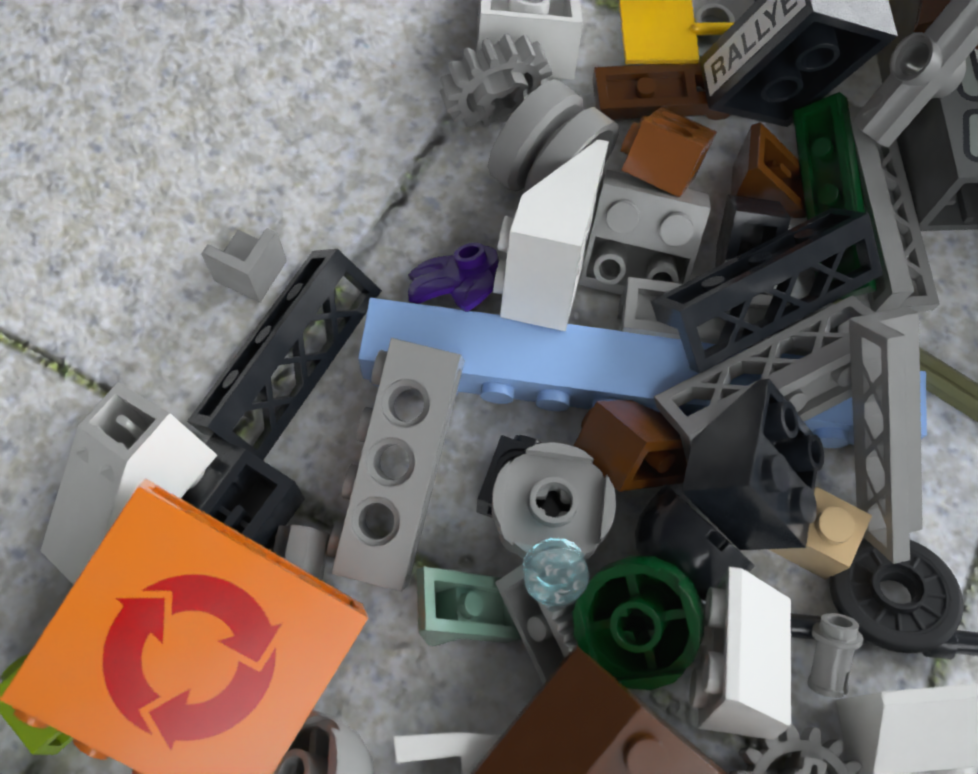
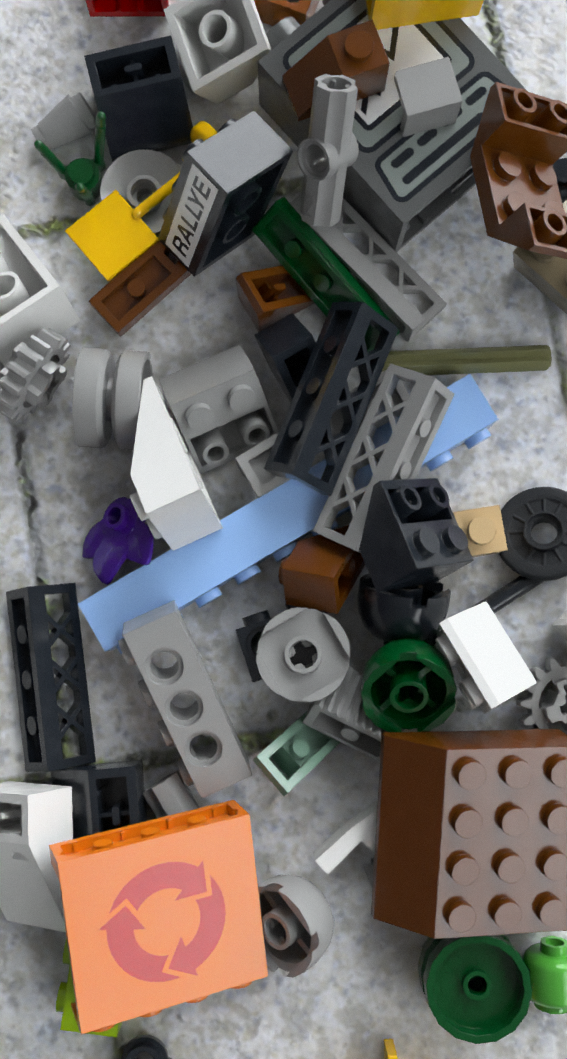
camera: 35 degrees left, 15 degrees up
(555, 572) = (338, 701): clear light blue tile -> none
(666, 150) = (190, 337): dark orange brick -> none
(833, 656) = (529, 597): light grey pin -> none
(887, 427) = (471, 440): light grey fence -> none

